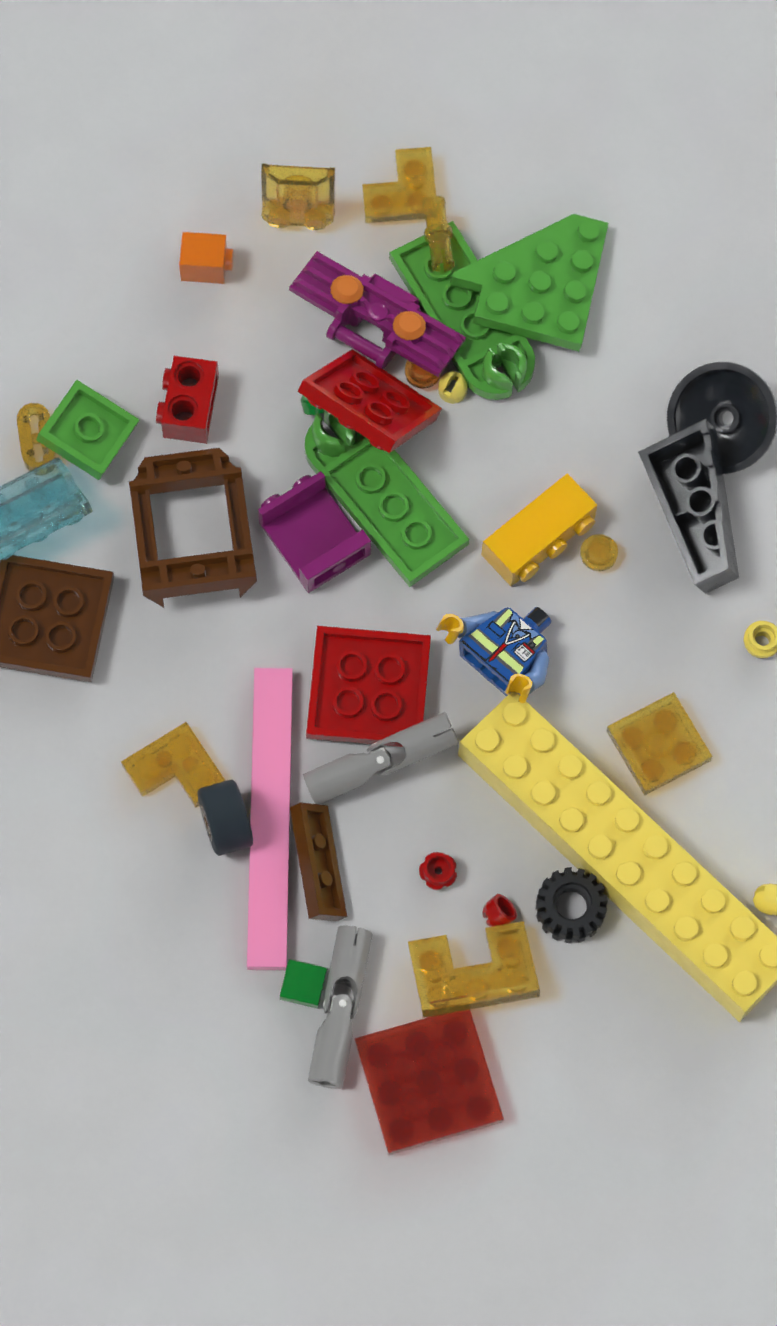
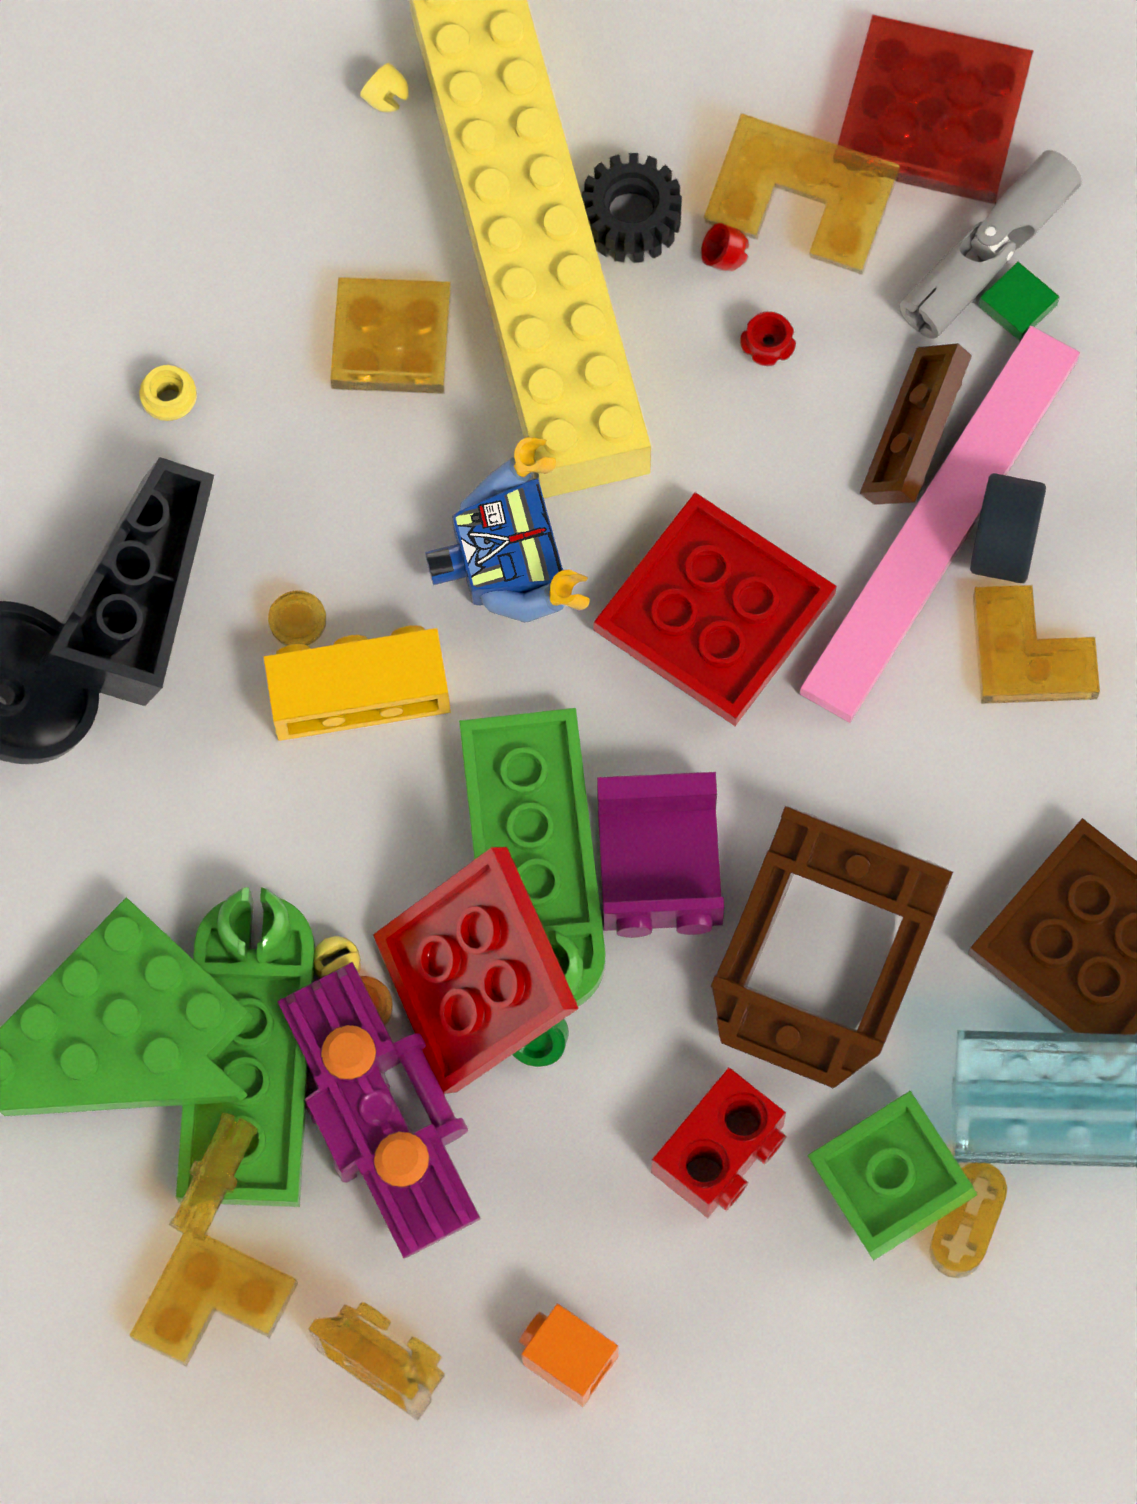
camera: 145 degrees left, 0 degrees up
(355, 769) = (800, 501): light grey piece -> none

